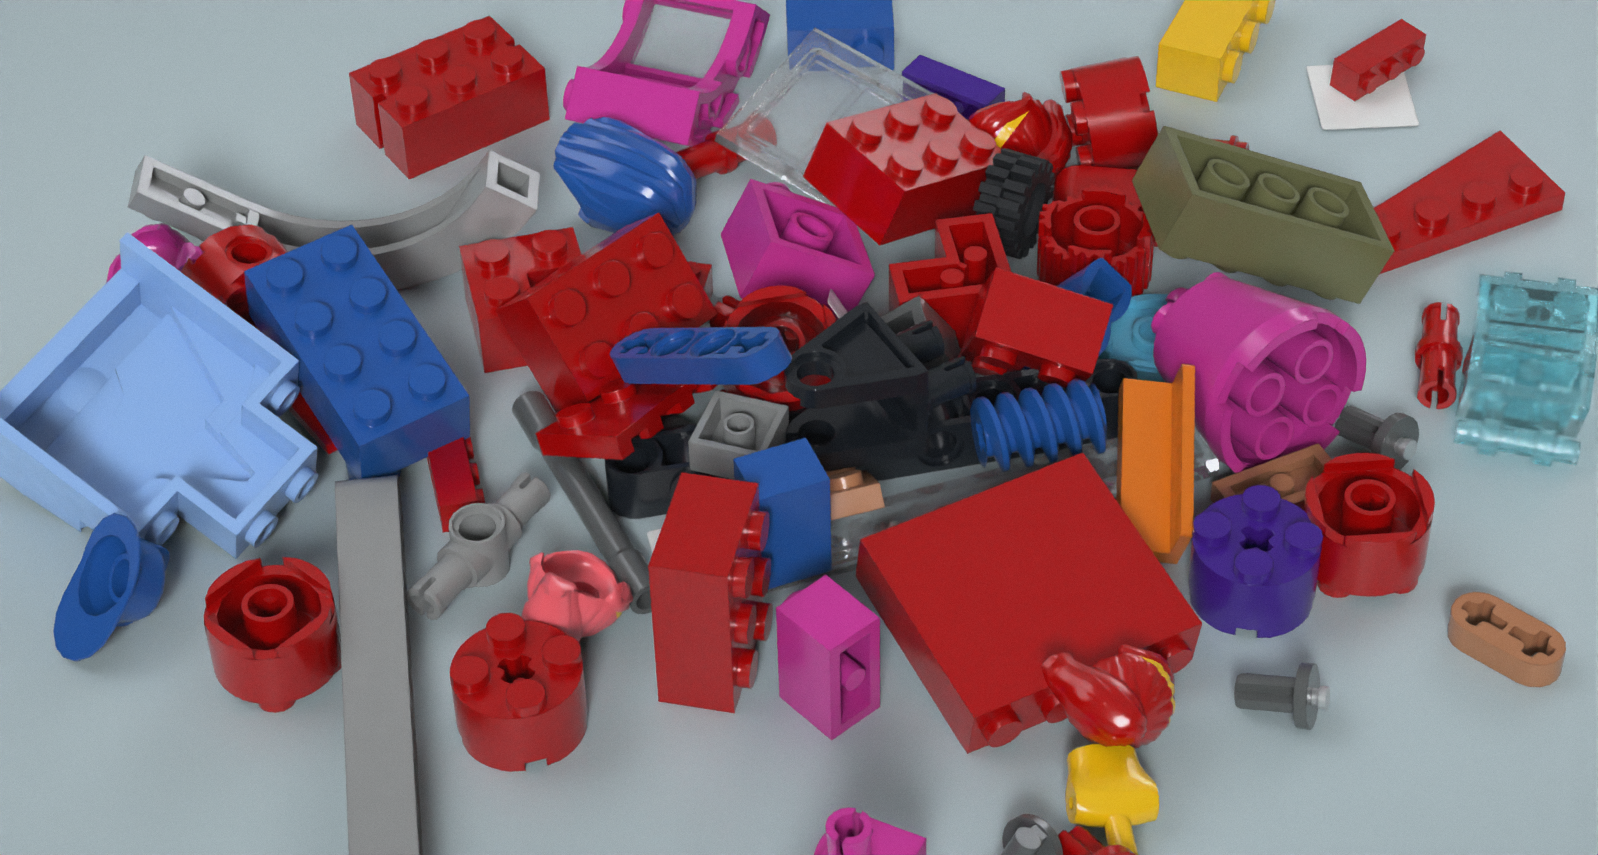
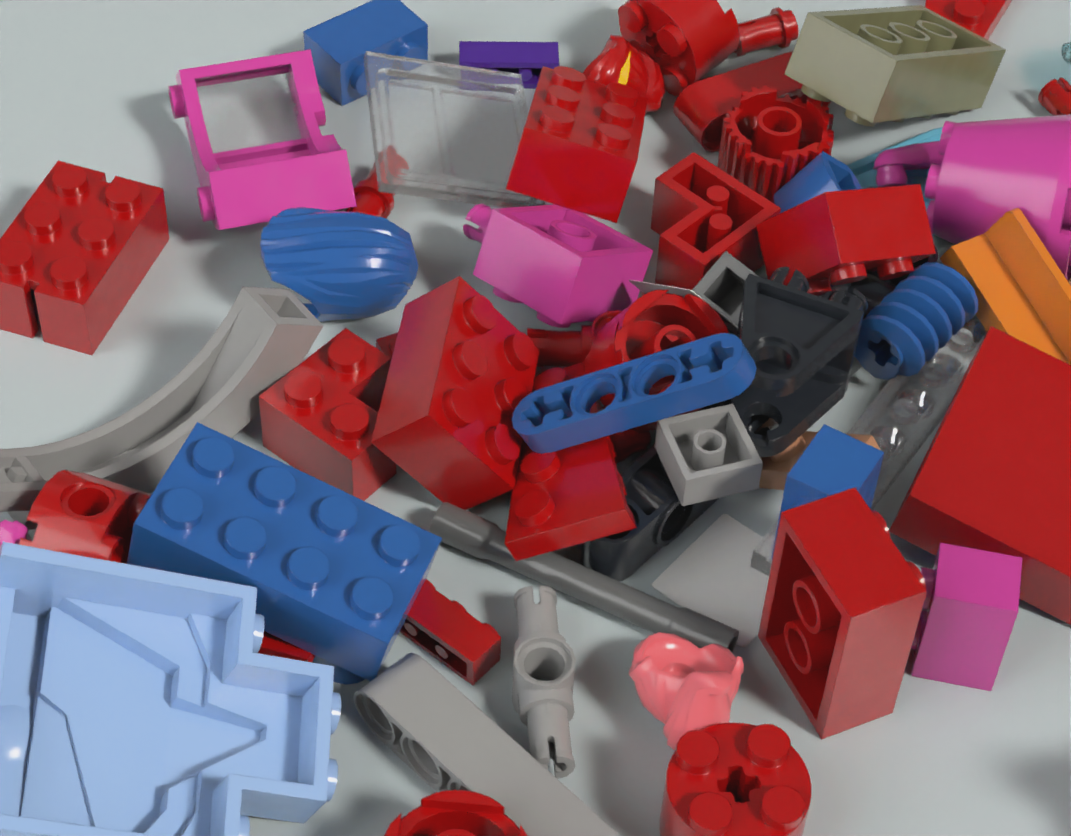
camera: 40 degrees left, 5 degrees up
(1015, 196) = (677, 127): black tyre -> none

